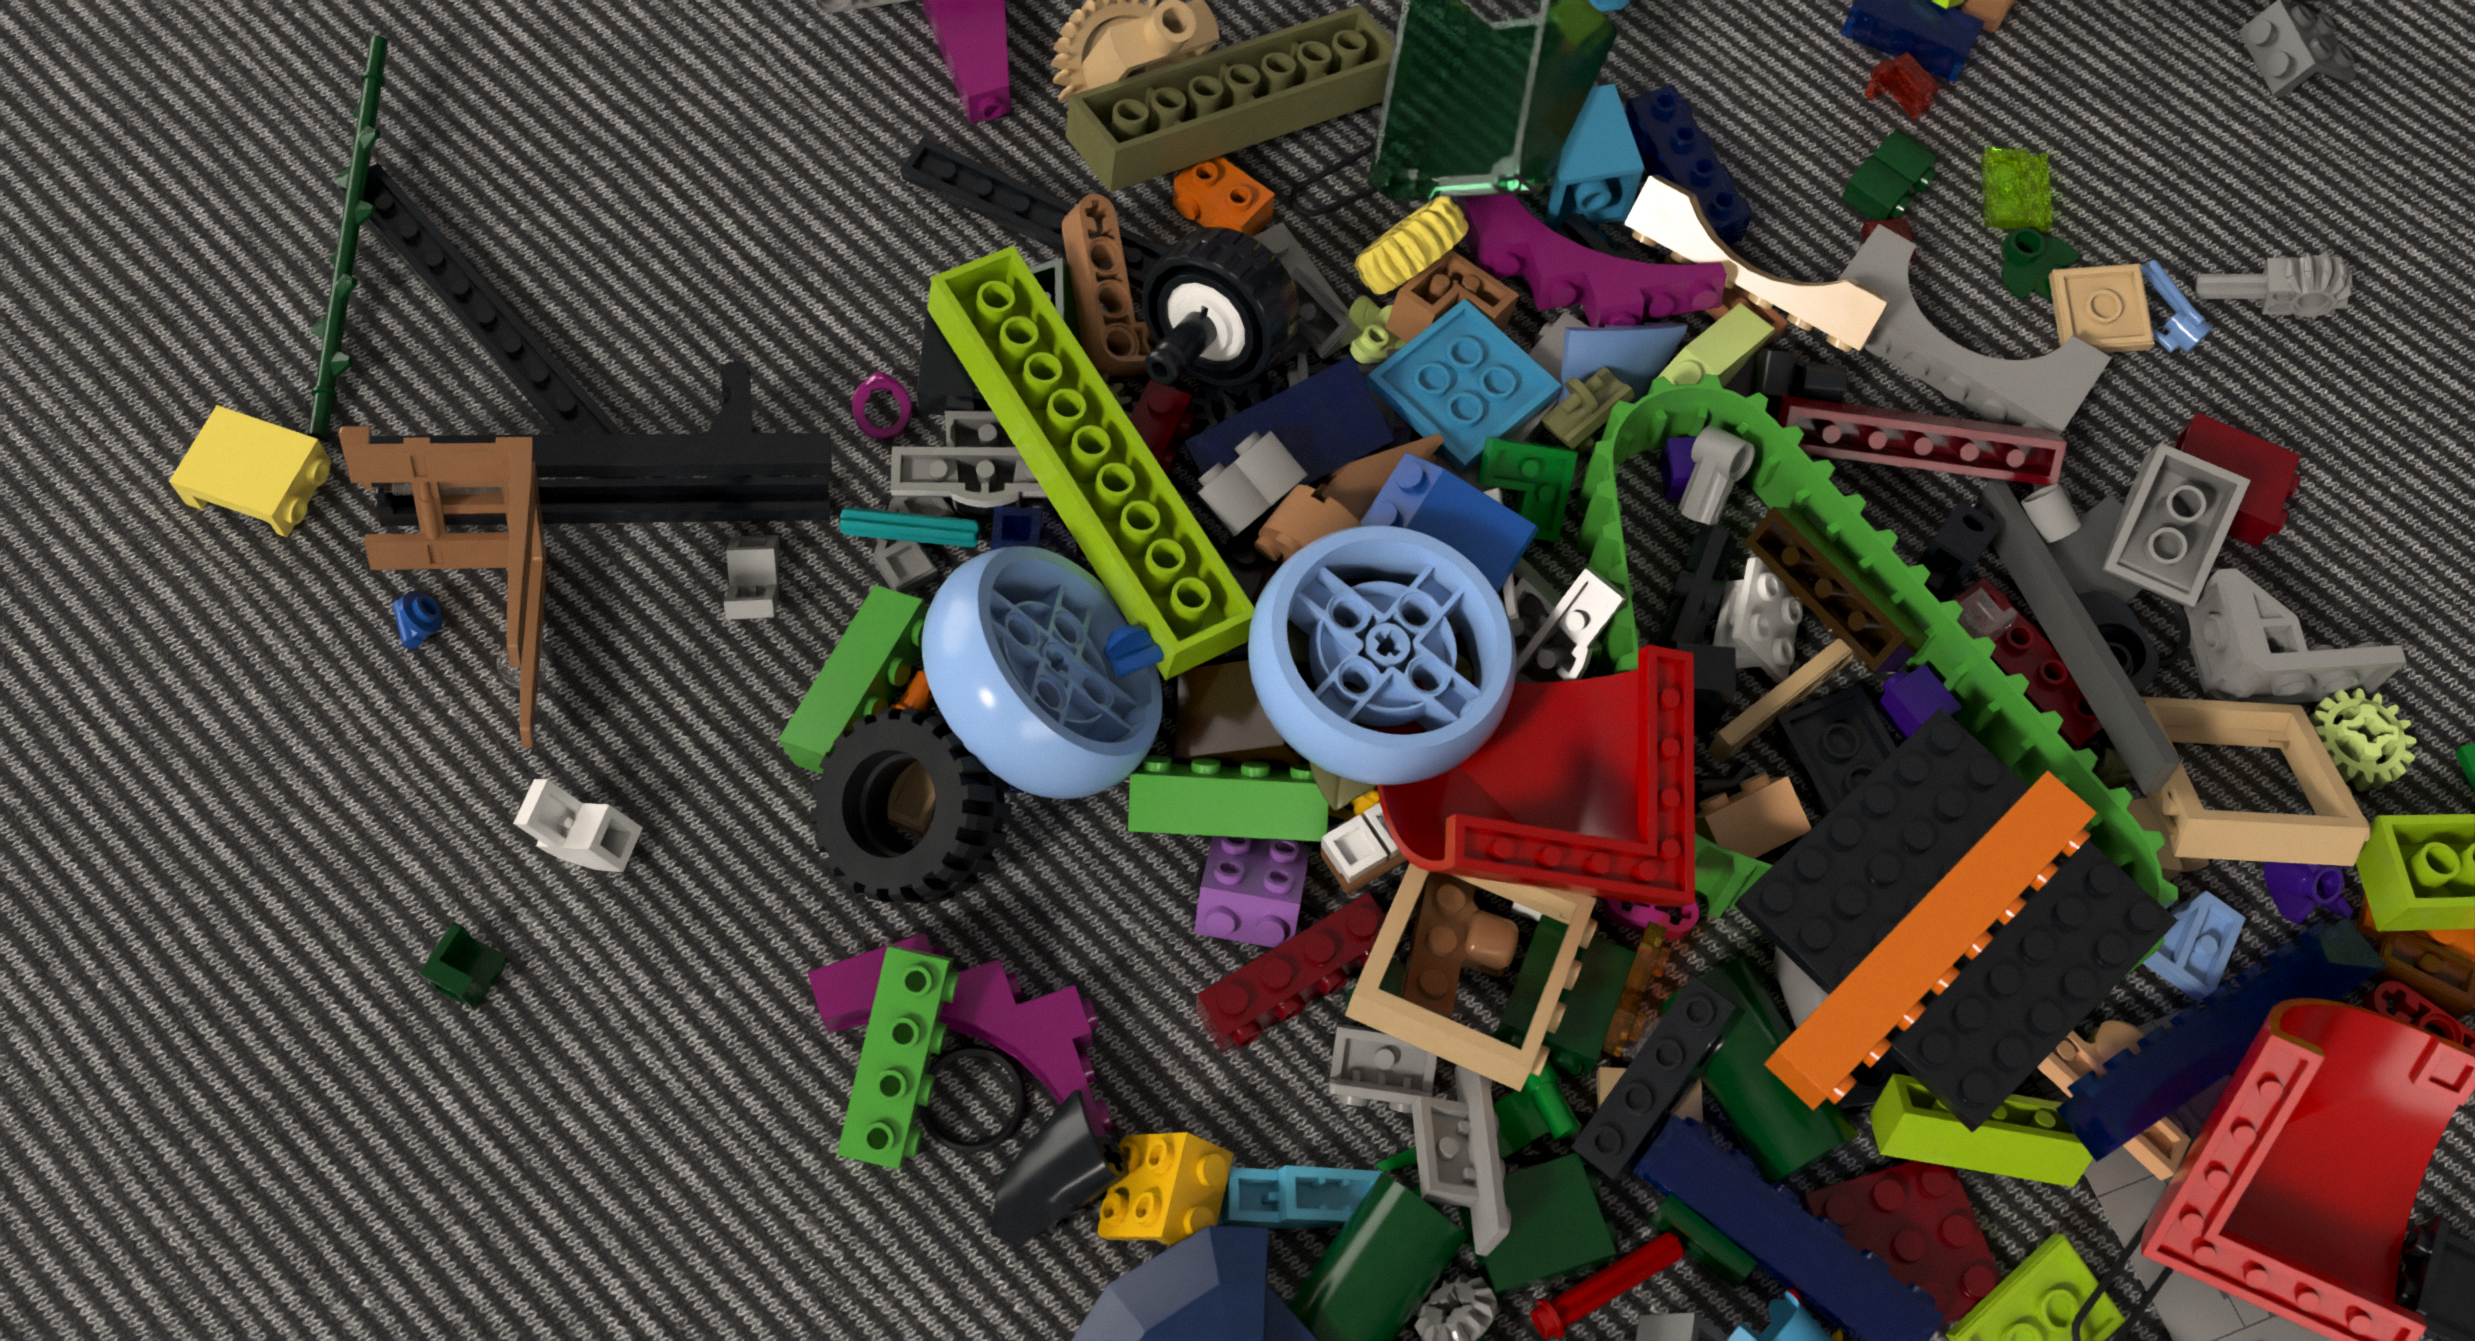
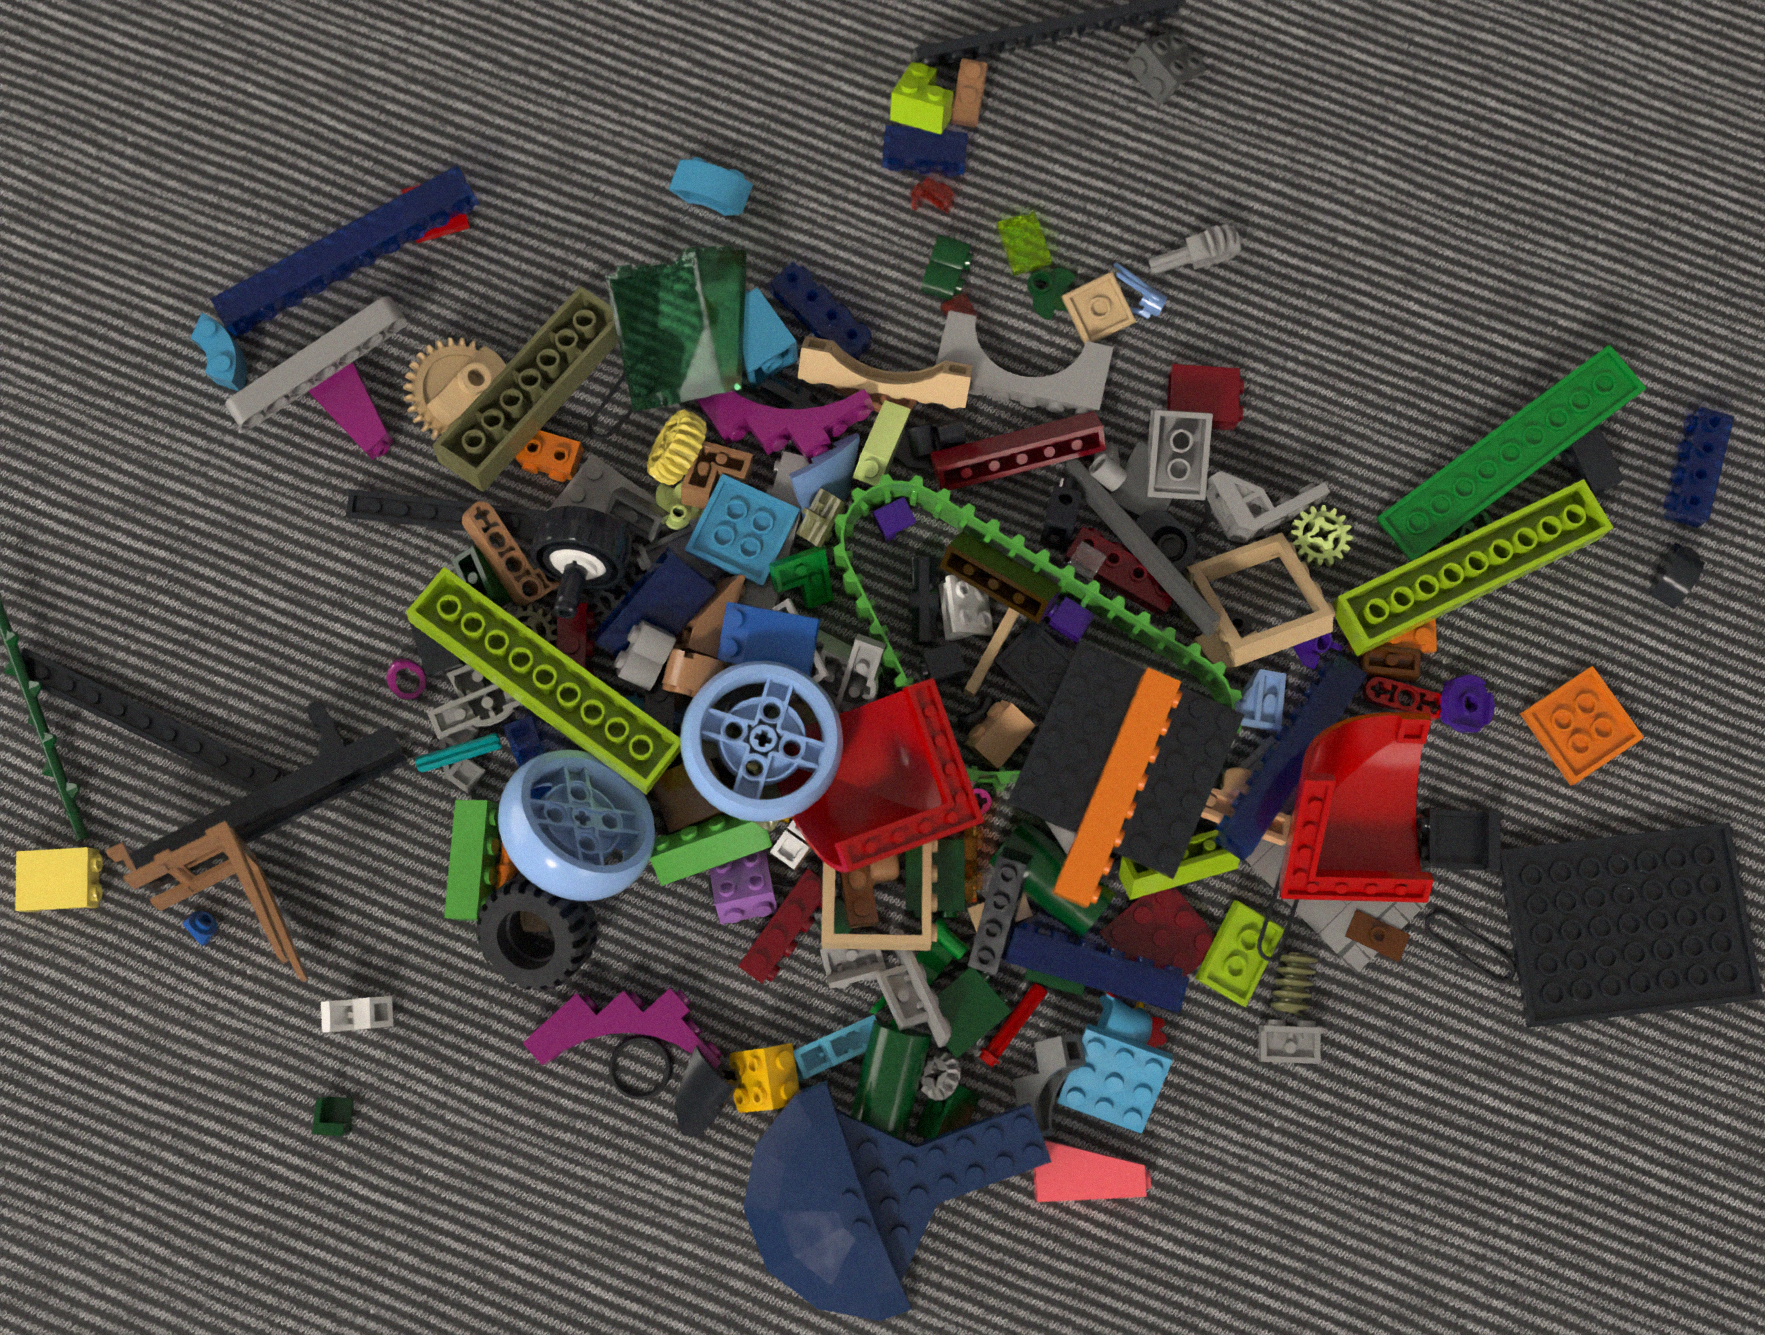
camera: 20 degrees left, 15 degrees up
(752, 577) = (381, 819): light grey slope -> none
(897, 1056) = (591, 1069): bright green brick -> none
(1131, 650) = (621, 791): blue plate -> none
(1719, 463) = (908, 523): light grey piece -> none

